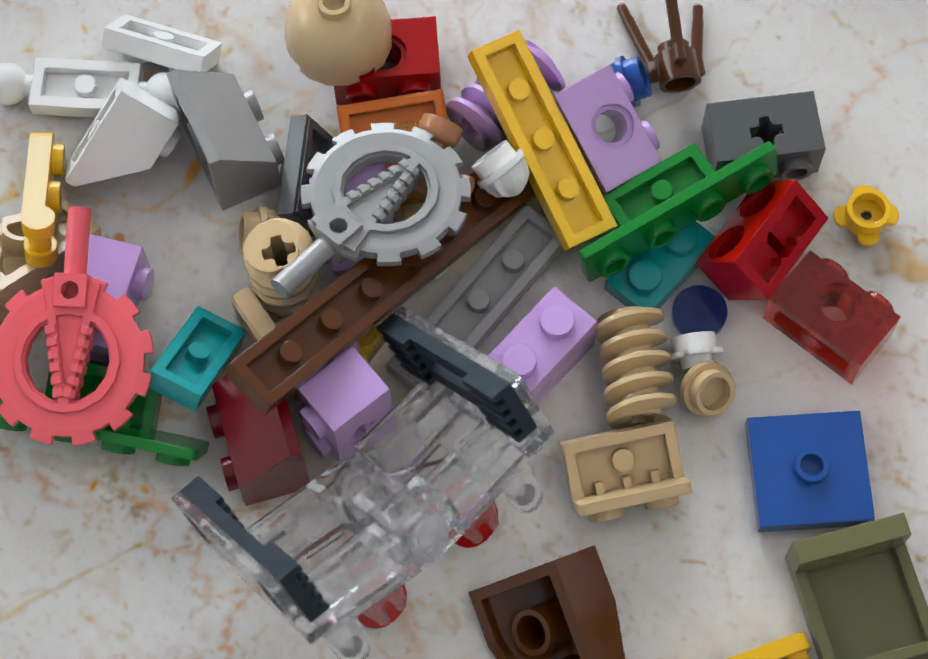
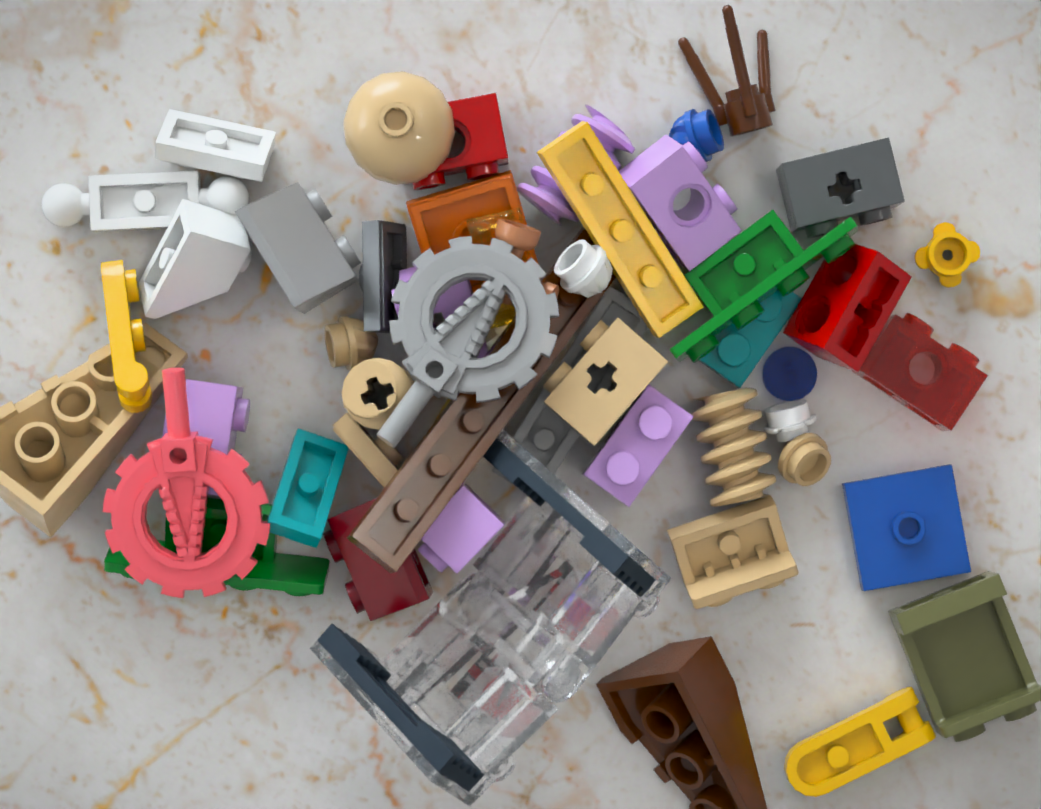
camera: 10 degrees left, 20 degrees up
(498, 307) = (634, 368): none -> tan brick

